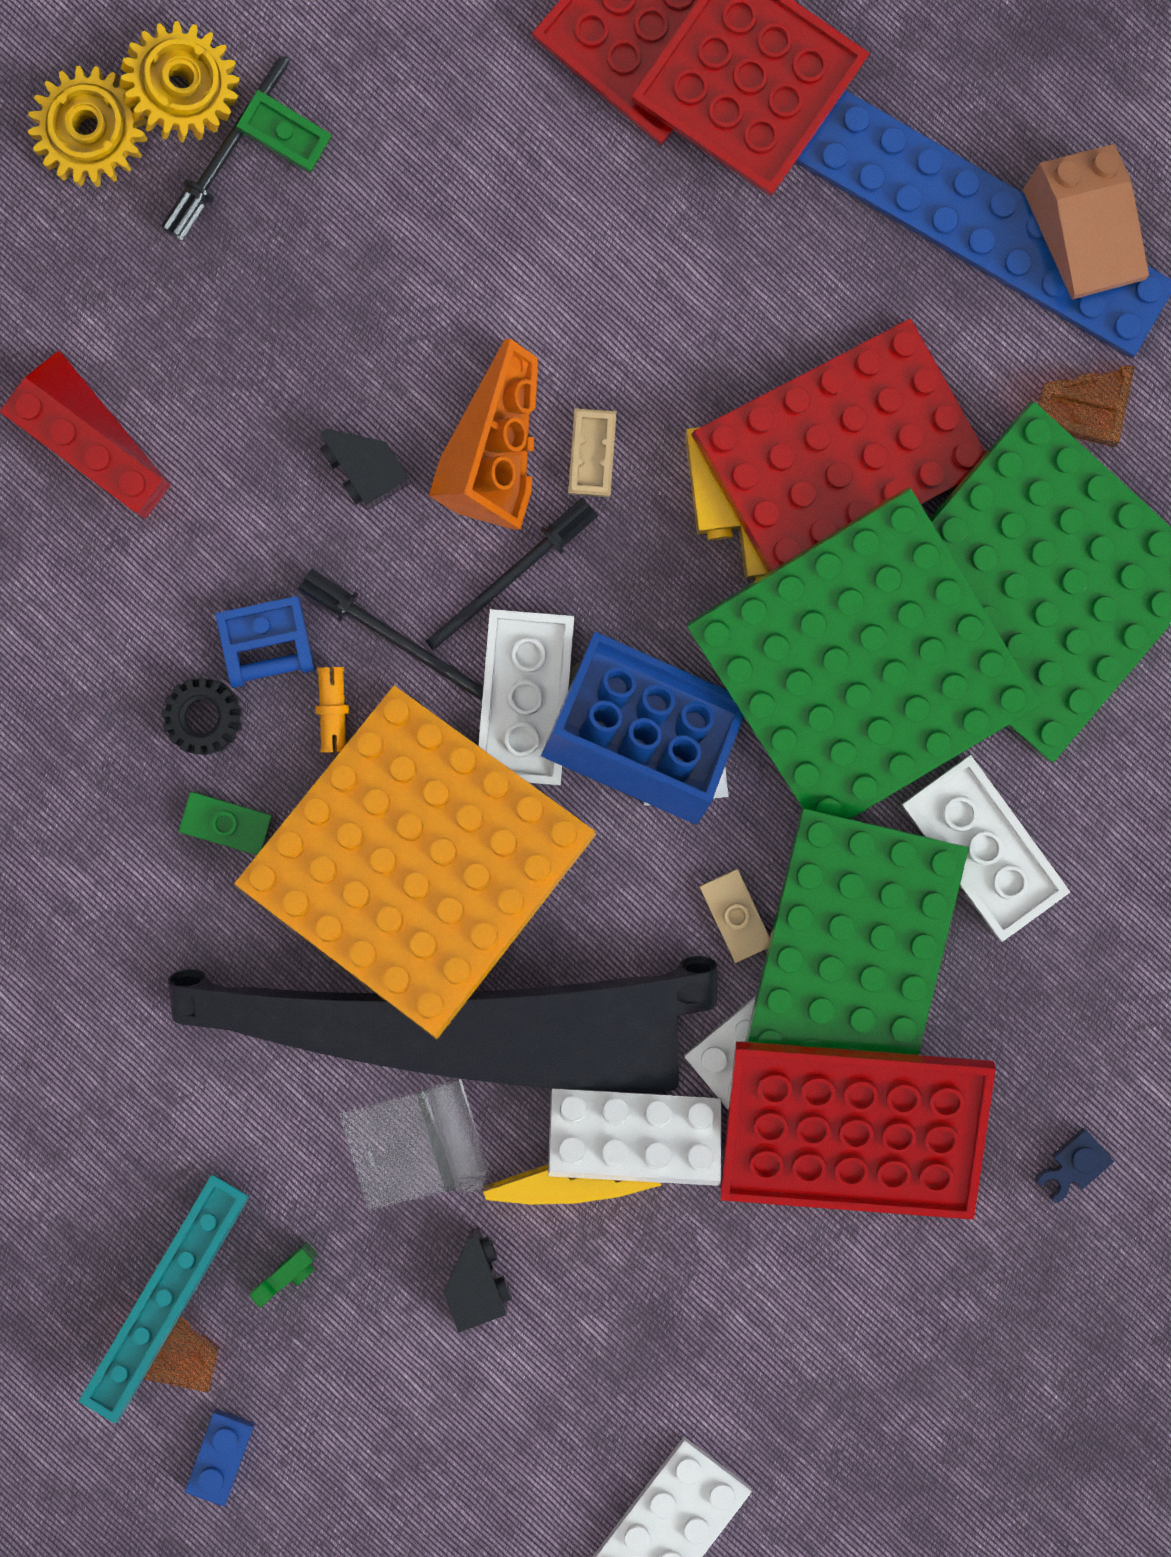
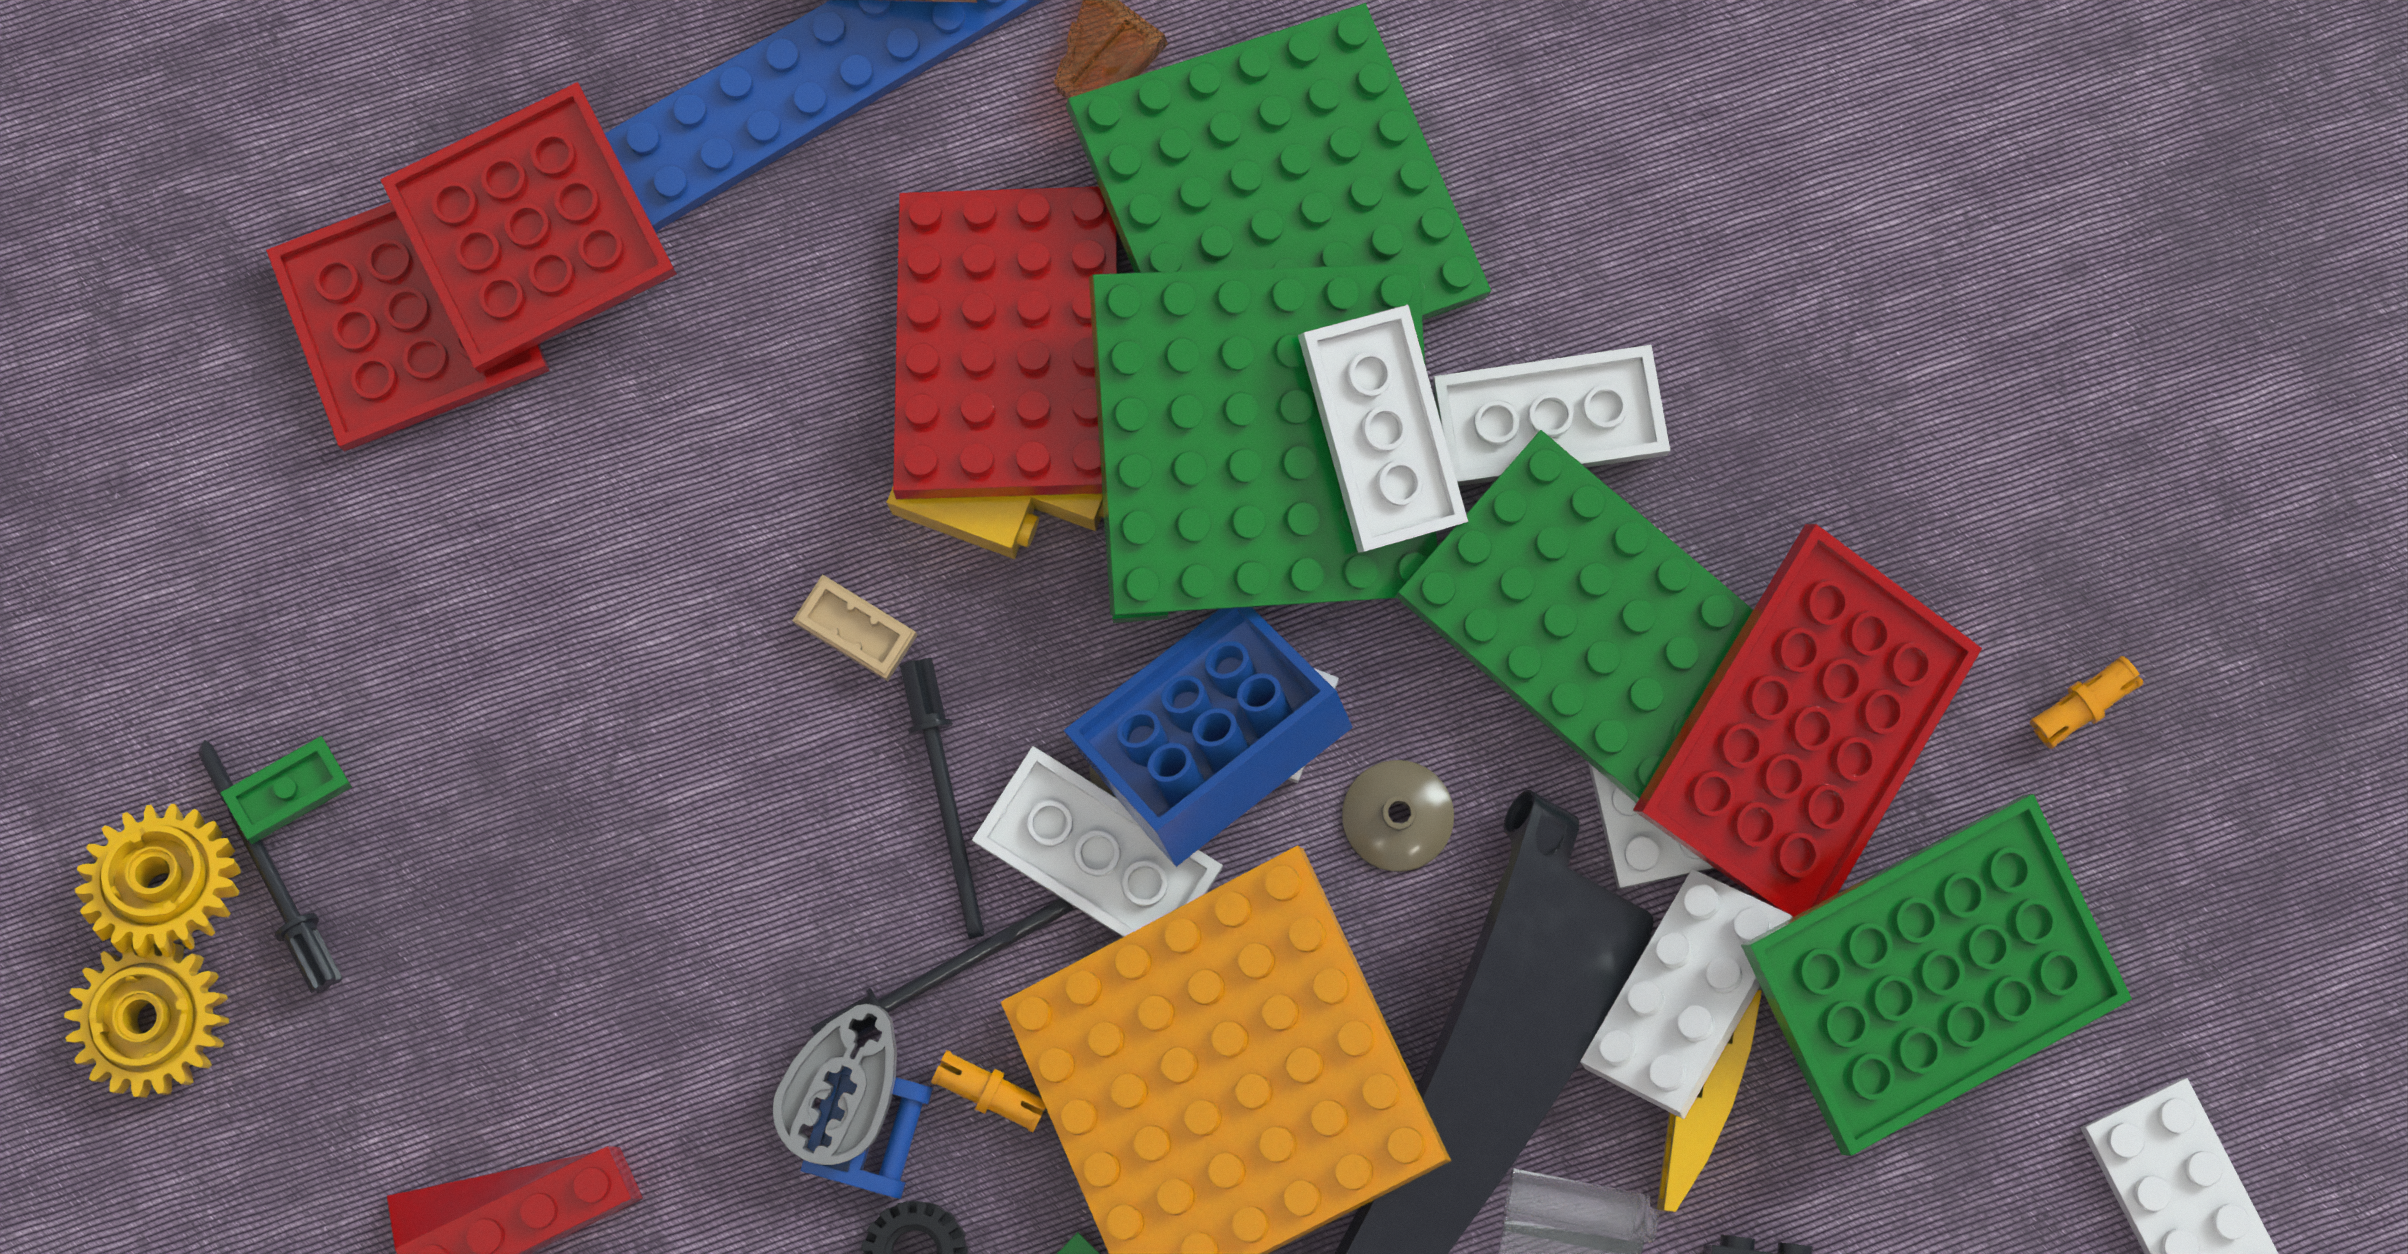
camera: 60 degrees left, 10 degrees down
(274, 586) = (807, 1081): none -> light grey piece
(368, 464) = (725, 894): black slope -> none
(486, 457) = (790, 751): orange wedge -> none
(640, 867) = (1392, 844): none -> dark tan dish
(733, 1295) = (1936, 974): none -> green plate
(735, 915) = (1483, 741): tan plate -> none
(911, 740) = (1383, 428): none -> white plate
(973, 1306) = (2086, 702): none -> light orange pin
(1079, 1161) = (1973, 495): dark blue plate -> none

